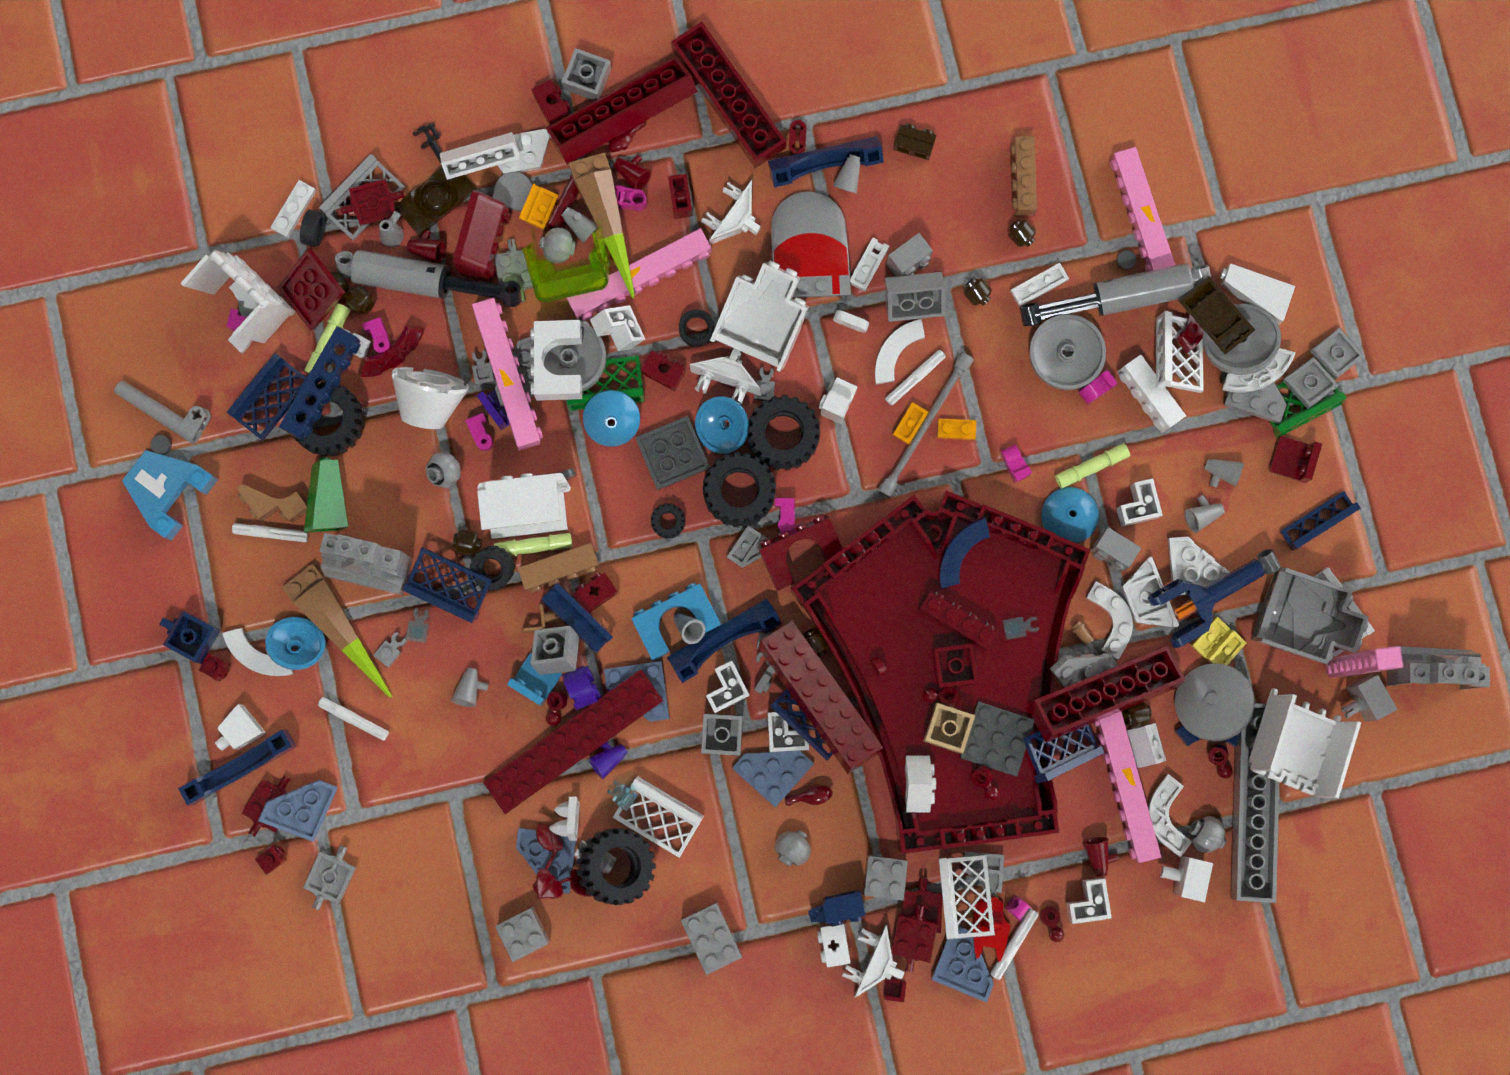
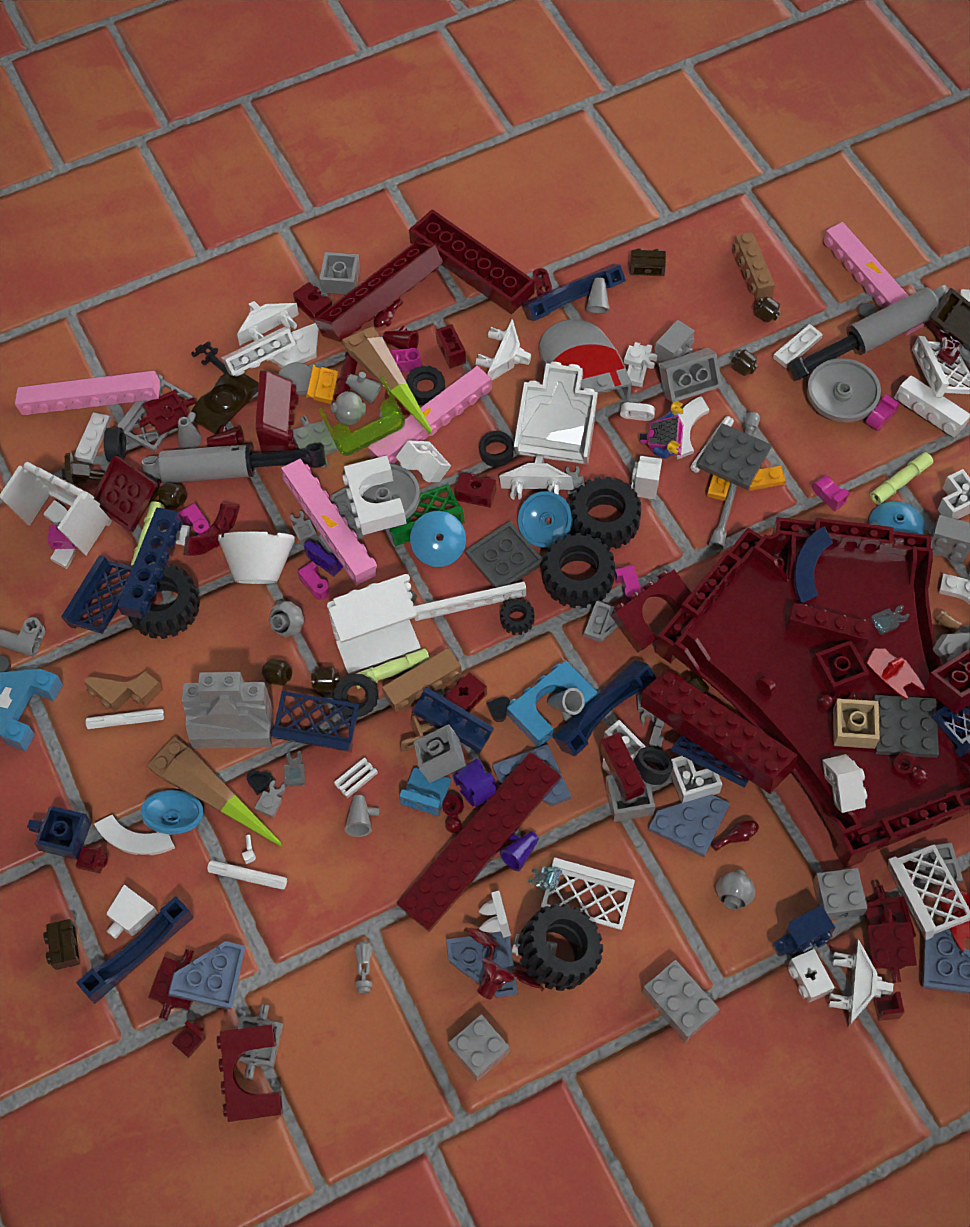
camera: 10 degrees left, 20 degrees down
(173, 744) = (62, 944): none -> dark brown brick
(266, 252) = (79, 473): none -> dark brown piece
(296, 161) = (88, 393): none -> bright pink brick
(303, 929) = (240, 1103): none -> dark red arch
(325, 498) = (173, 668): slope -> none
(360, 699) = (249, 855): none -> white hand
(383, 628) = (259, 781): none -> black tile
(423, 522) = (277, 672): none -> dark brown head
(442, 819) = (363, 952): none -> light grey piece
(459, 655) = (373, 772): none -> white tile
(494, 111) = (266, 318): none -> white connector
(593, 493) = (470, 601): none -> white tile
(625, 612) = (498, 708): none -> black tile
(636, 222) = (425, 373): none -> black tyre
(718, 712) = (622, 767): none -> dark red brick
(760, 709) = (655, 757): none -> black tyre
(868, 258) = (637, 356): none -> white plate
(870, 359) = (666, 433): none -> torso
(932, 400) = (734, 456): none -> dark grey plate
(1003, 681) = (893, 671): none -> shield

